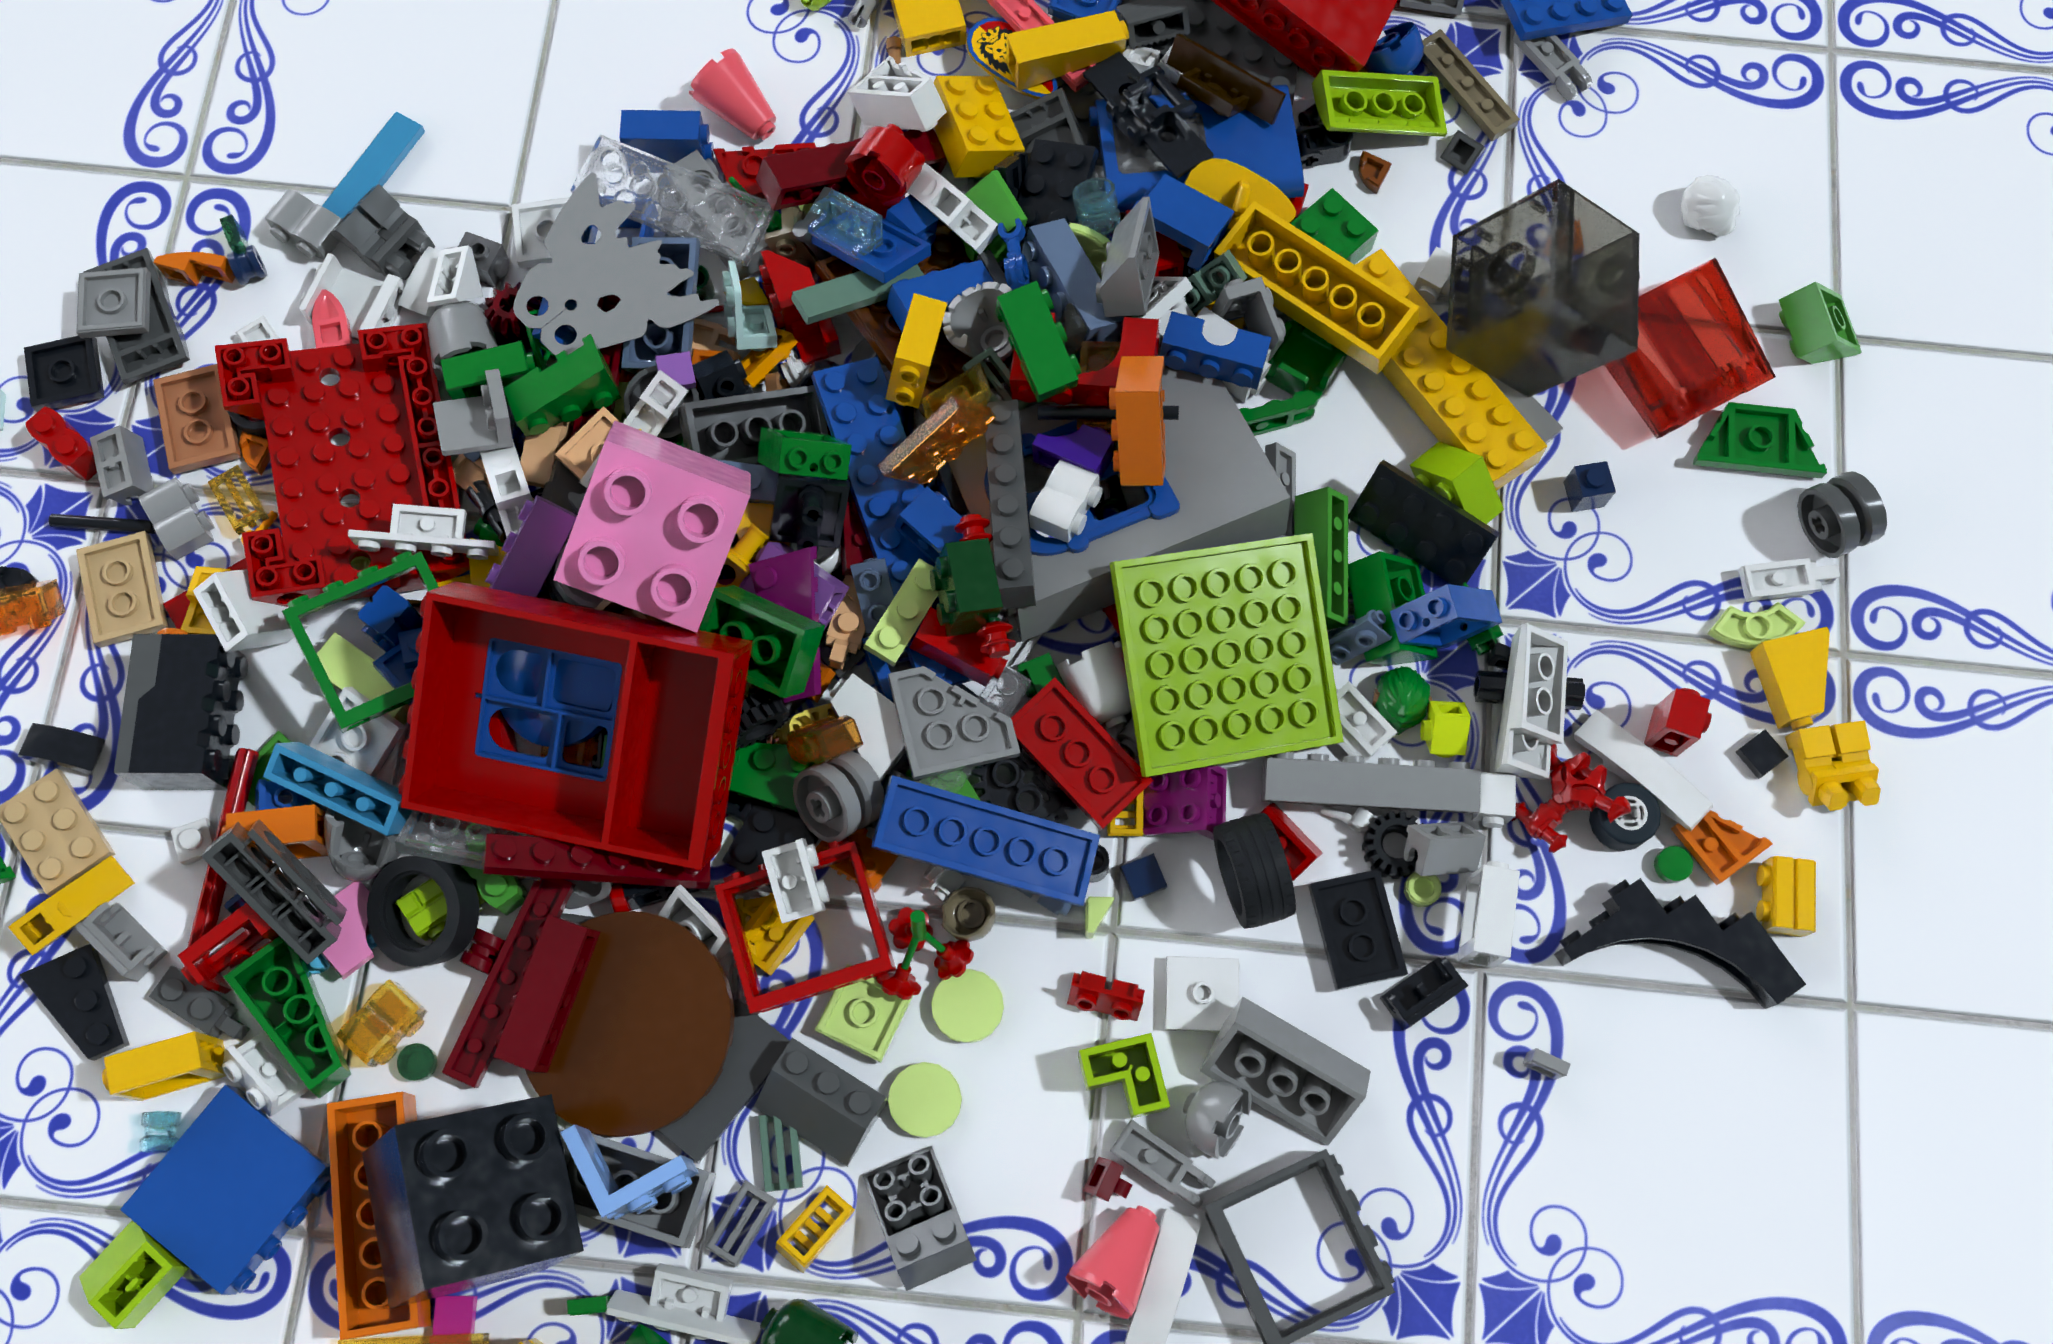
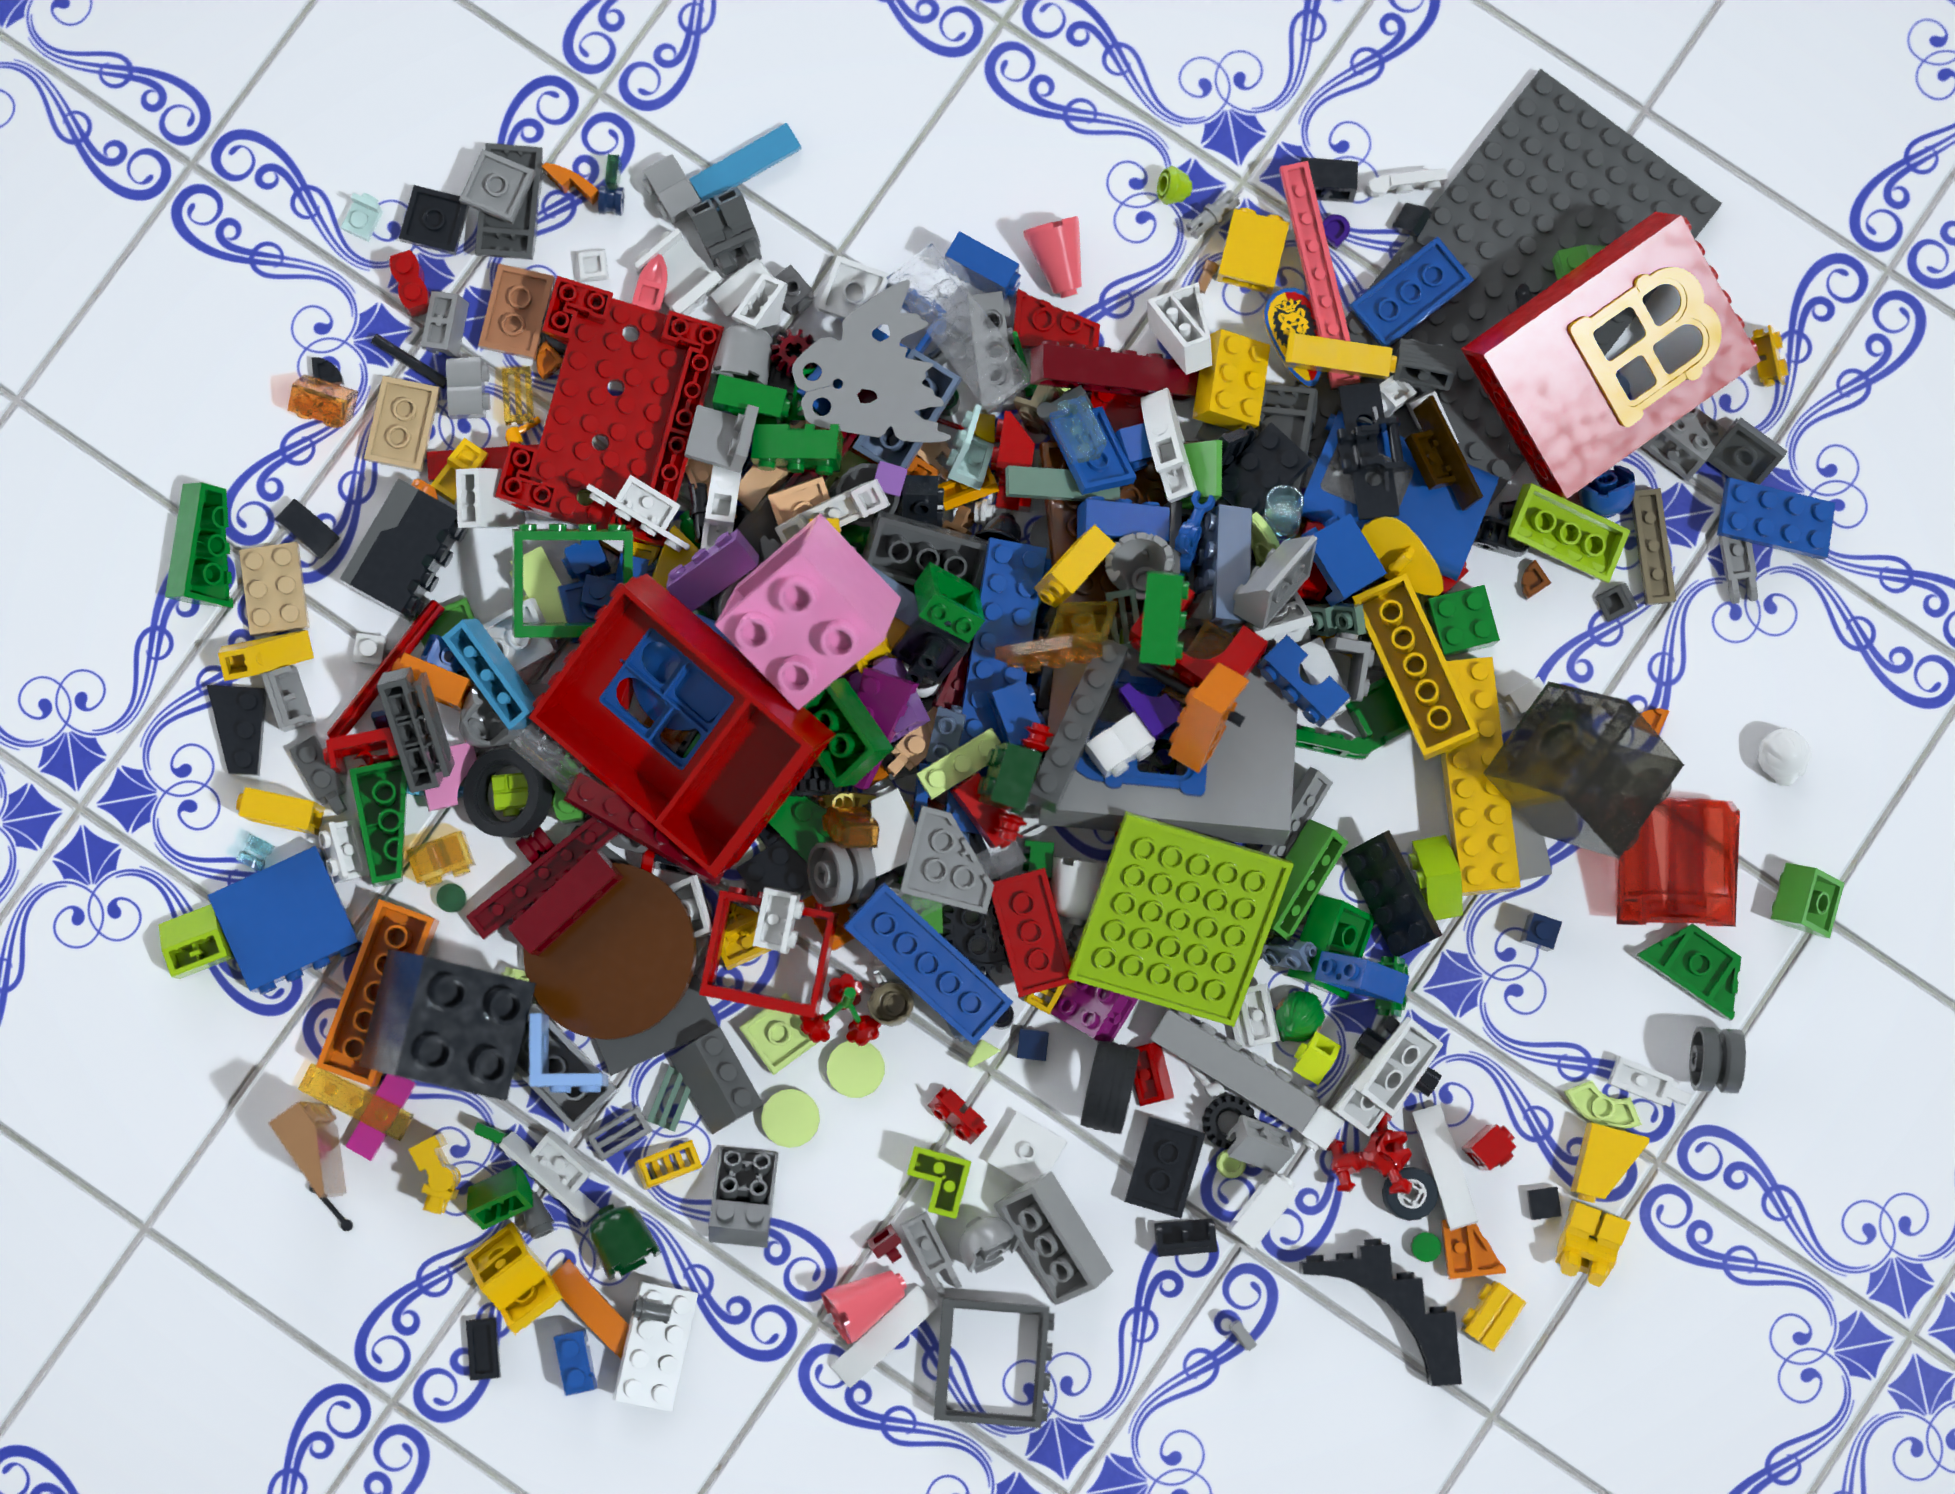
camera: 25 degrees right, 10 degrees up
(884, 164) = (1134, 394): red brick -> none

